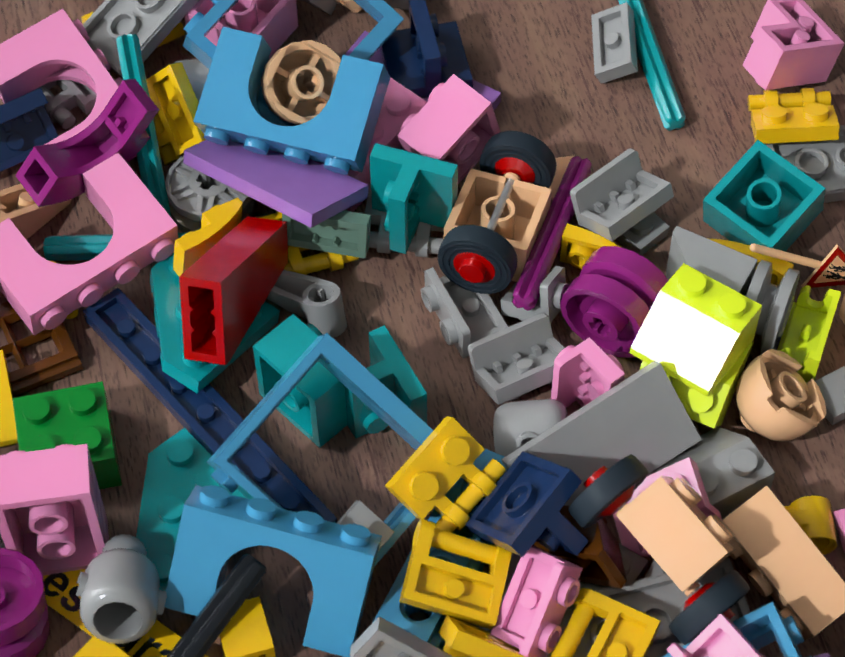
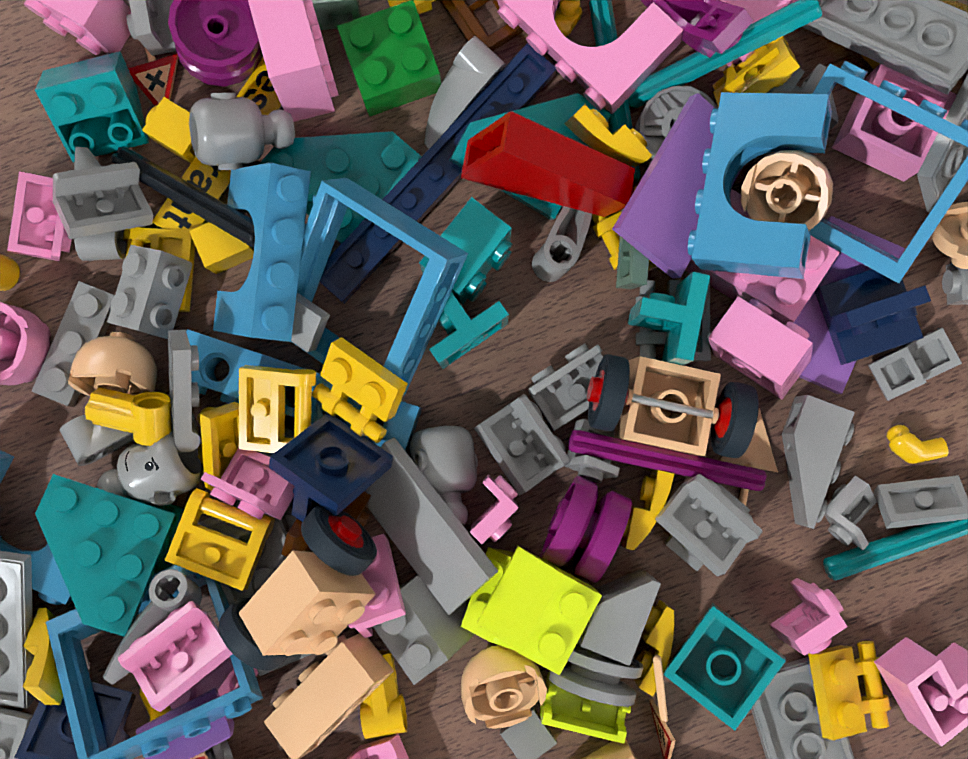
camera: 90 degrees right, 30 degrees up
(106, 360) = (467, 78): none -> light grey piece
(481, 39) = (914, 363): none -> light grey slope
(561, 47) = (912, 449): none -> yellow arm
(563, 119) = (812, 450): none -> light grey slope
(613, 99) = (847, 508): none -> light grey bracket
(718, 127) = (811, 622): none -> bright pink bracket

